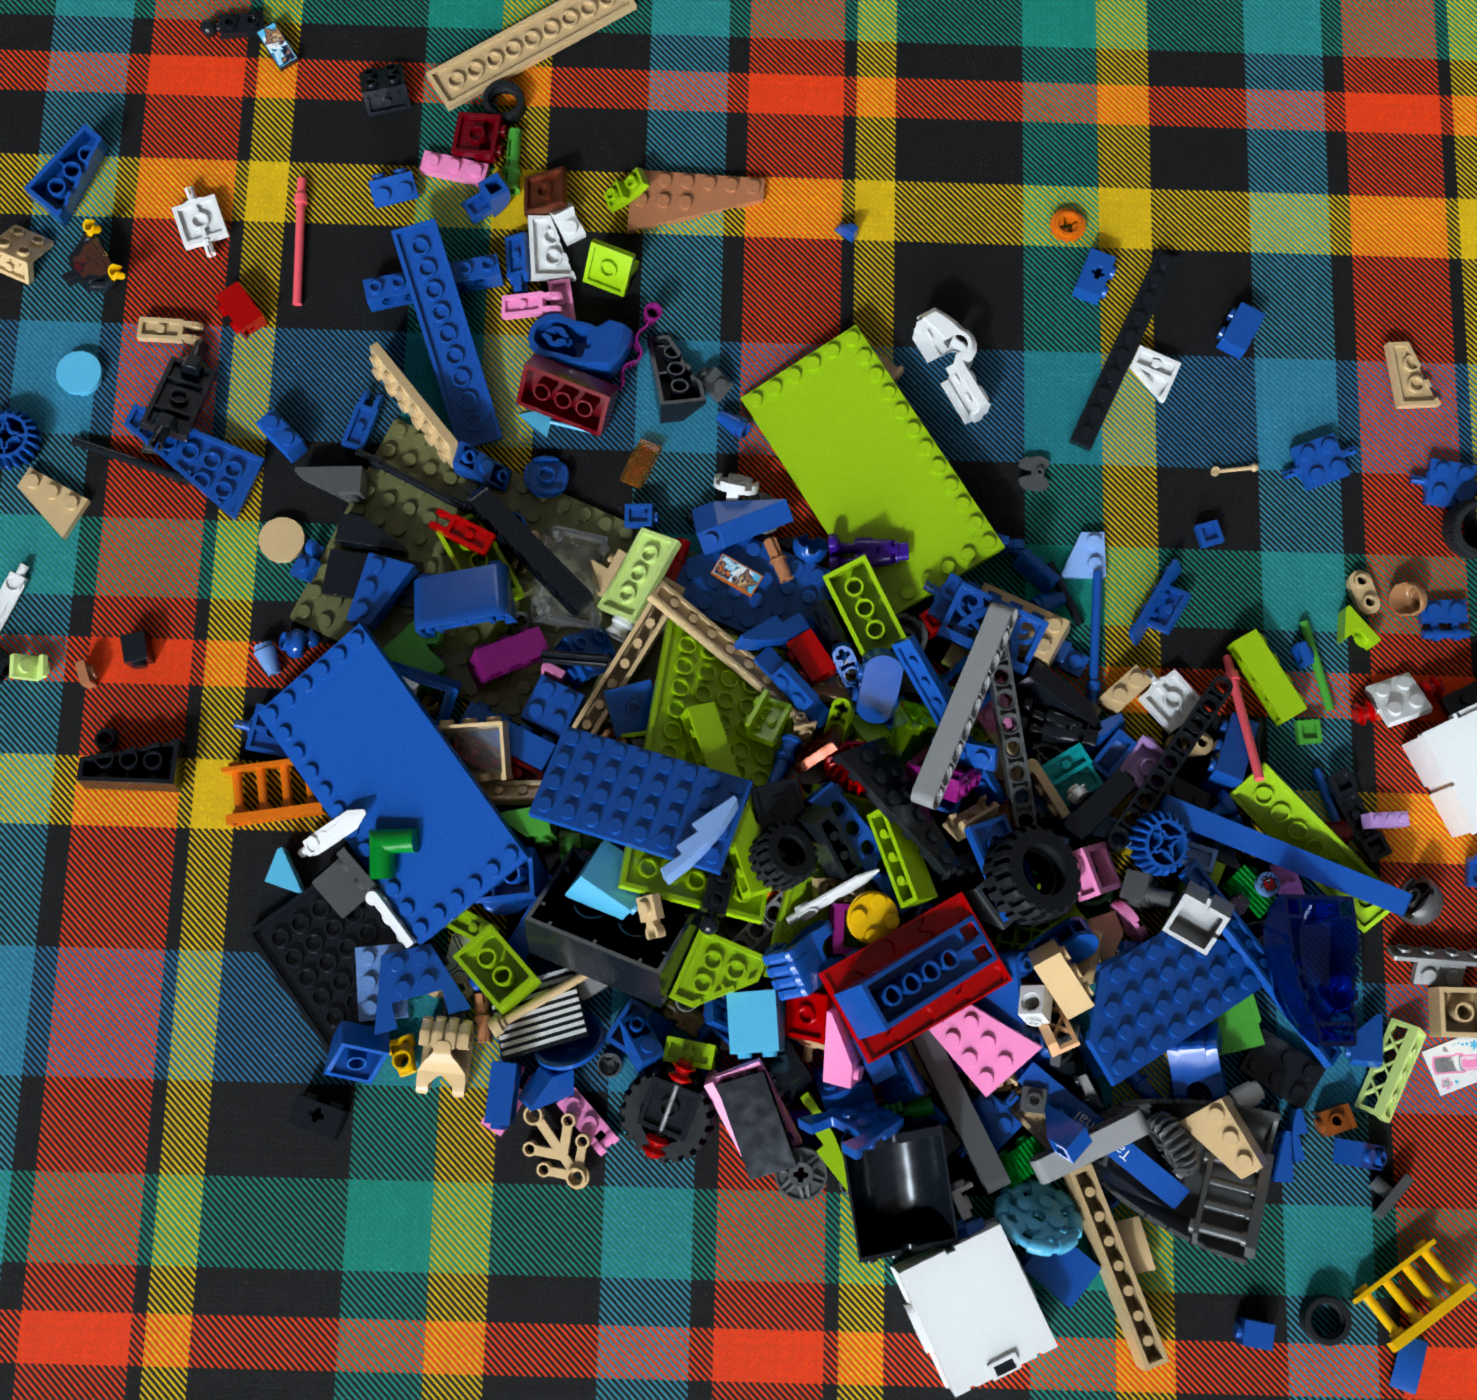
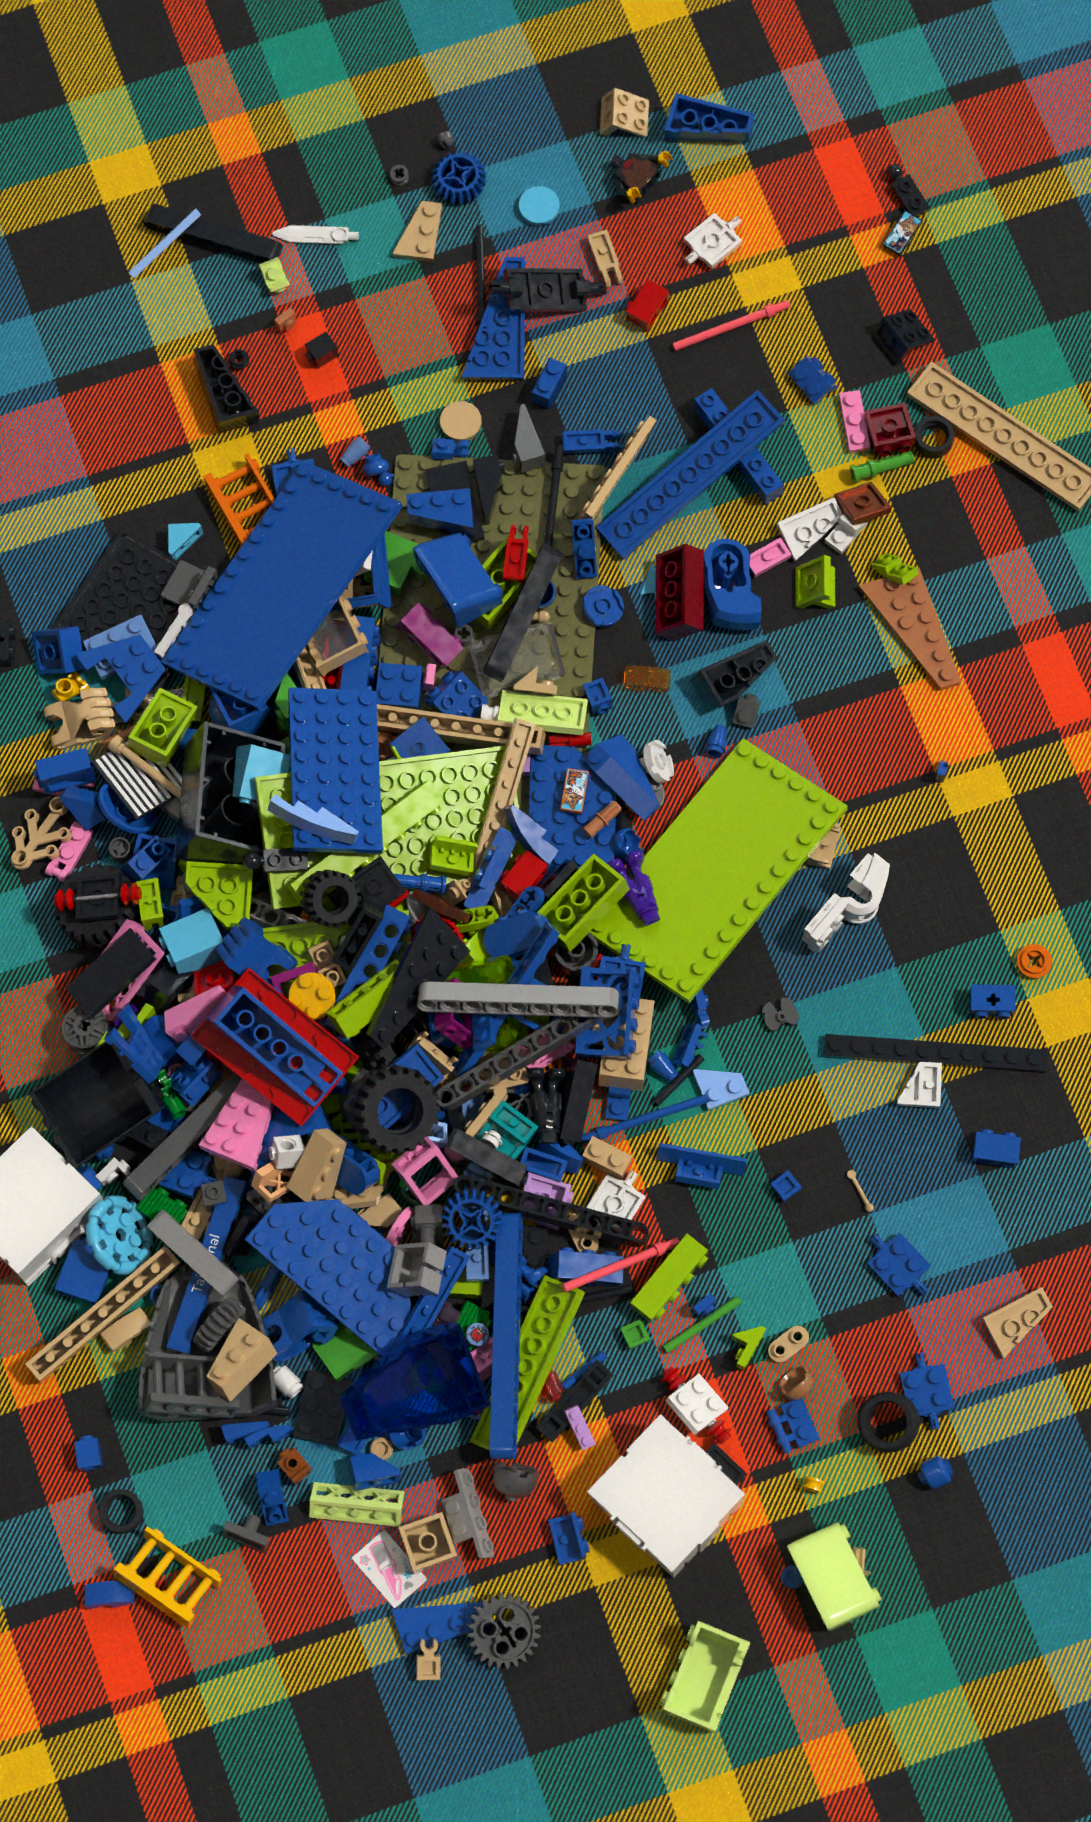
camera: 75 degrees right, 5 degrees down
(332, 832) = (225, 557): white piece -> none
(385, 845) = (226, 599): green brick -> none
(491, 199) = (834, 460): blue brick -> none
(518, 261) = (788, 507): blue hinge -> none
(529, 305) = (751, 531): bright pink hinge -> none
(575, 658) = (444, 686): black axle -> none
(651, 309) = (781, 629): magenta flag -> none
(651, 912) = (243, 811): tan plate -> none
(810, 908) = (301, 945): white piece -> none
(1065, 1135) = (192, 1223): blue slope -> none

